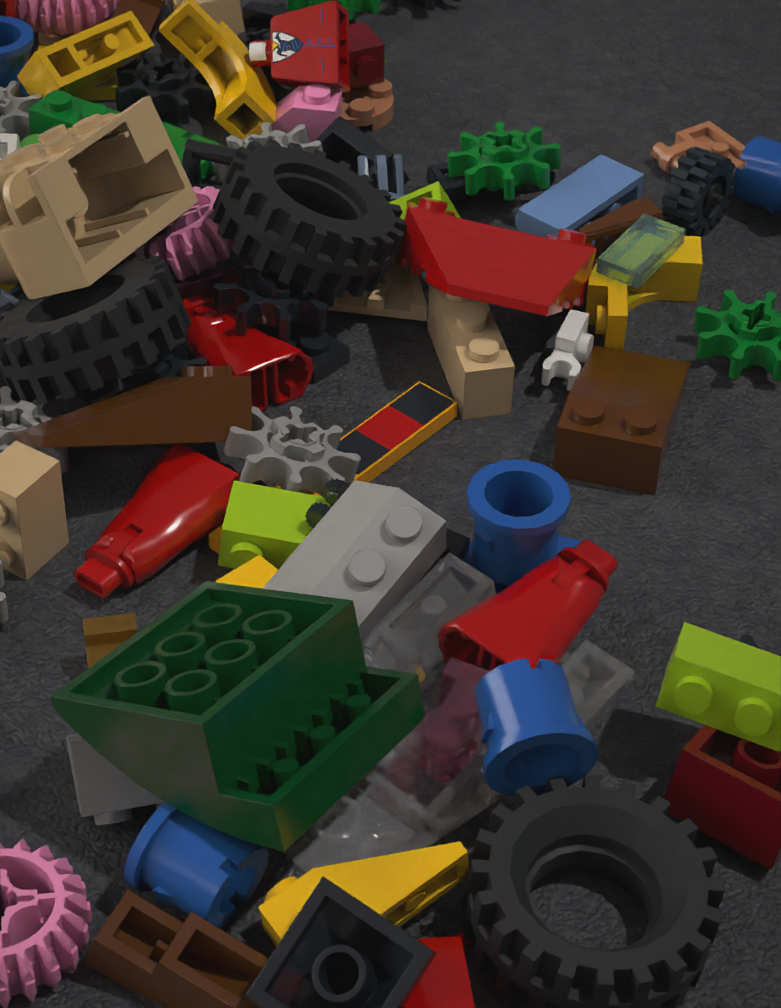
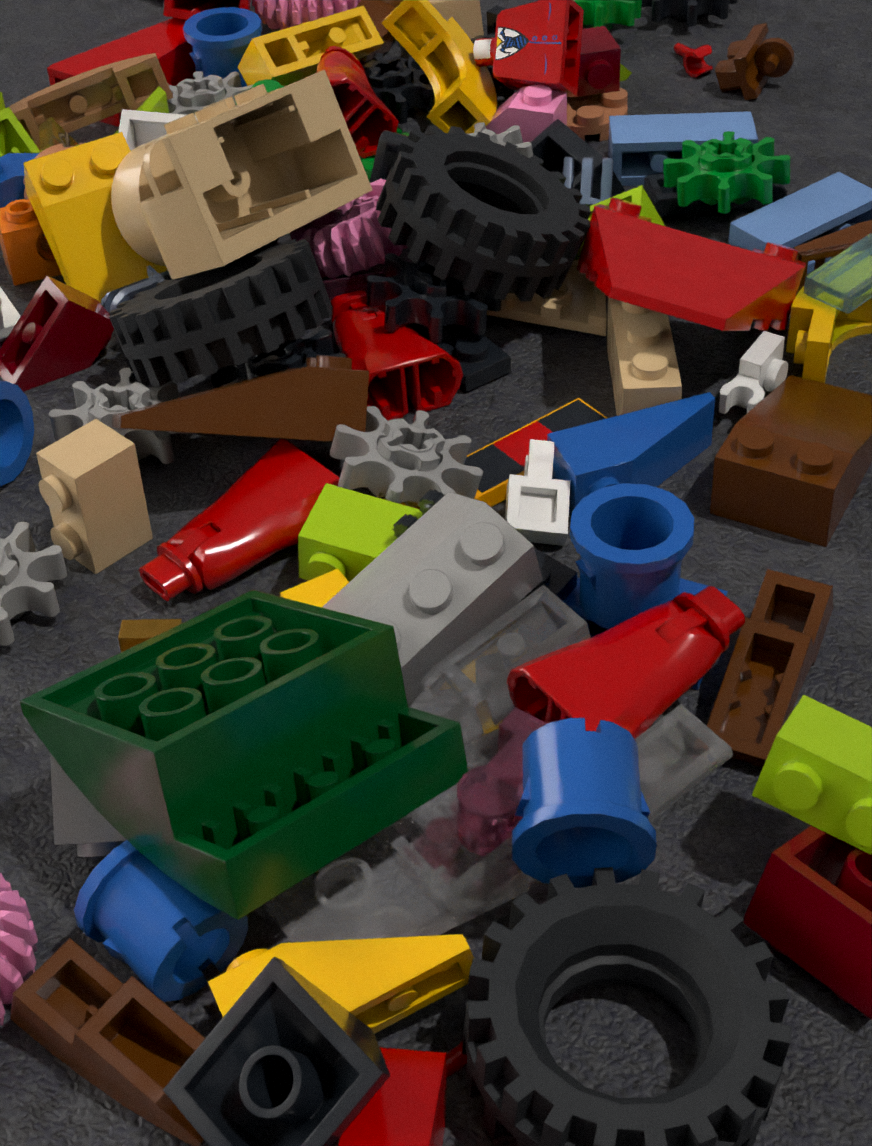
camera: 15 degrees right, 0 degrees up
(129, 84) = (360, 106): none -> red piece
(409, 471) = (535, 501): none -> white plate
(431, 132) = (643, 141): none -> medium blue brick
(441, 43) = (694, 59): none -> red hand
(472, 431) = (633, 446): none -> blue slope
(497, 46) = (753, 62): none -> reddish brown hips
(638, 597) = (770, 663): none -> reddish brown slope

